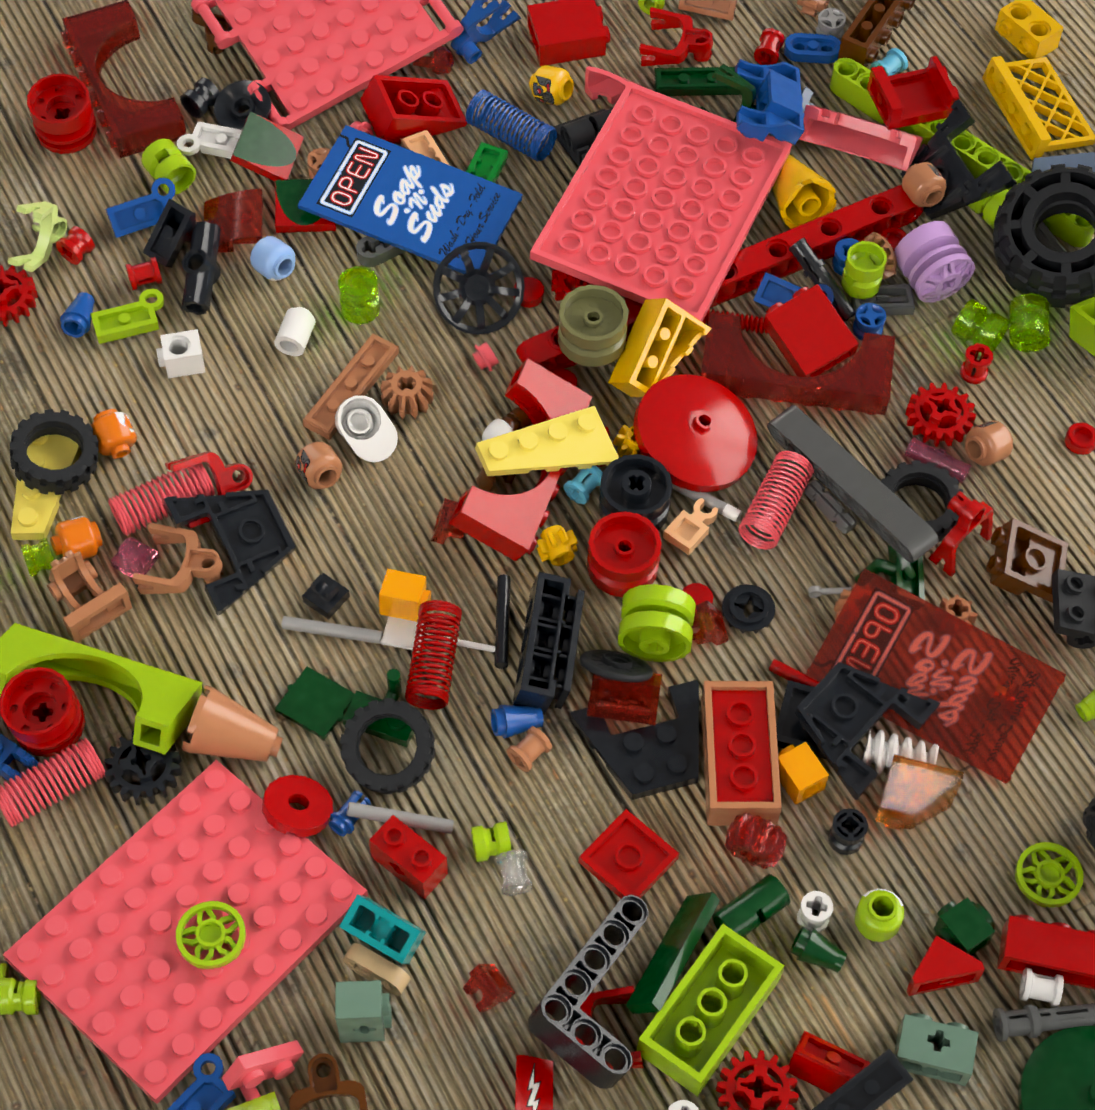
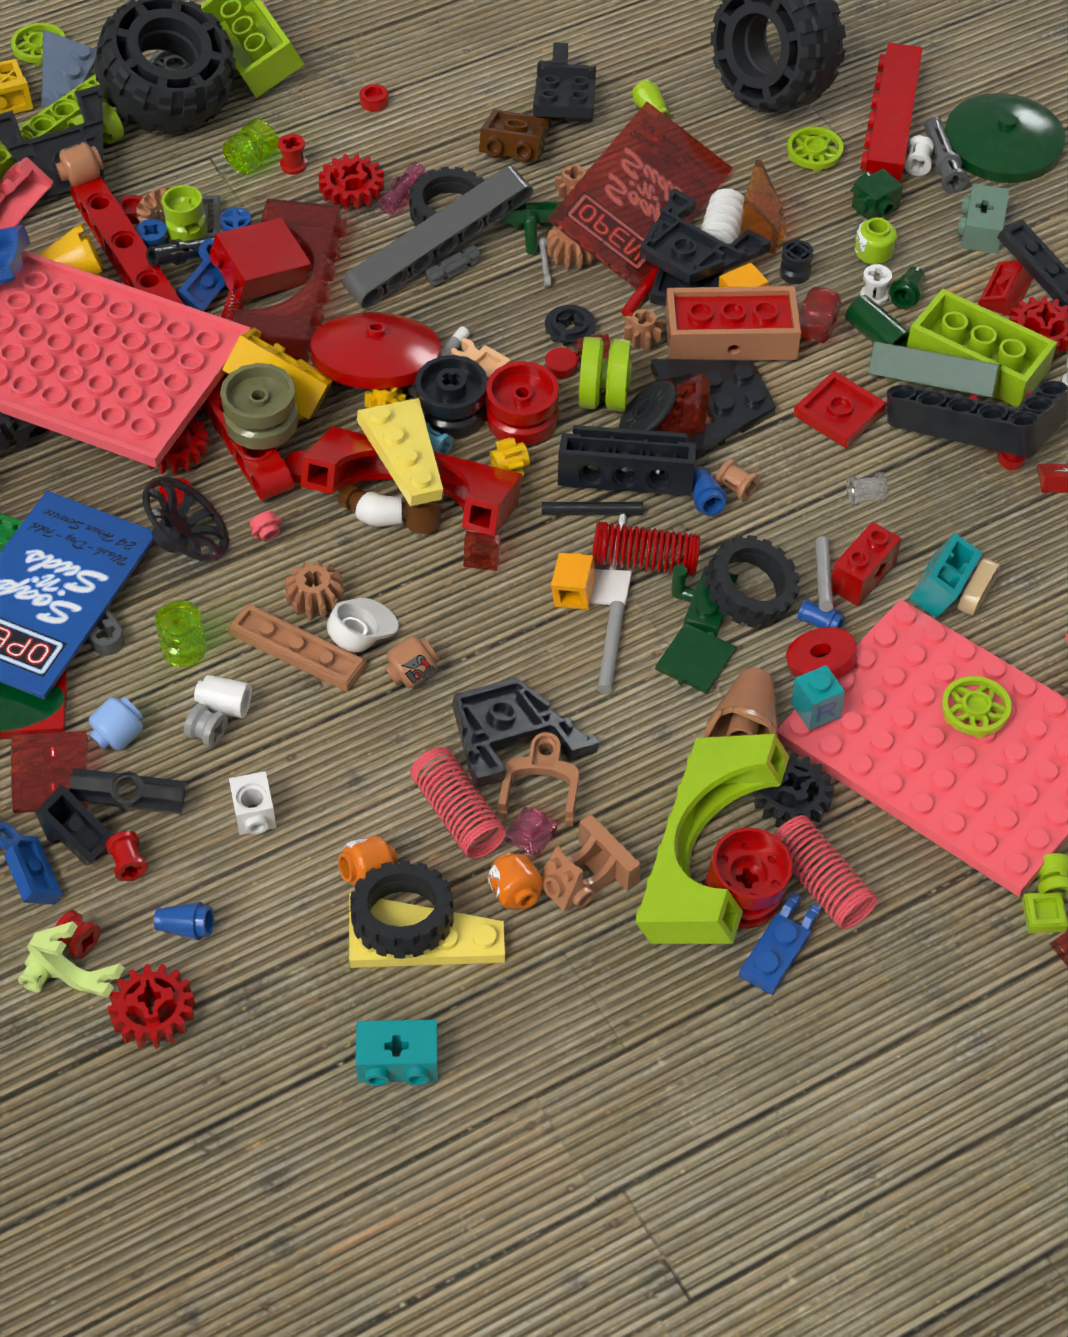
camera: 90 degrees left, 5 degrees down
(37, 556) = (539, 919): clear neon green wheel -> none
(128, 319) = (194, 864): lime hinge -> none
(221, 474) = (425, 742): red piece -> none
(227, 783) = (817, 697): none -> teal brick
(265, 319) = (205, 725): none -> light grey wheel
(325, 595) = (570, 653): black tile -> none
(362, 1011) = (1032, 583): sand green brick -> none
(483, 838) = (839, 506): lime wheel -> none
(491, 983) = (982, 501): clear red tile -> none
(738, 663) = (643, 328): none -> nougat gear
(765, 523) = (482, 317): coral piece -> none
(934, 261) = (182, 164): lavender wheel -> none
(944, 968) = (914, 212): red slope -> none
(970, 514) = (490, 145): red piece -> none
(988, 443) = (386, 149): nougat head -> none
(1029, 322) = (241, 110): clear neon green wheel -> none

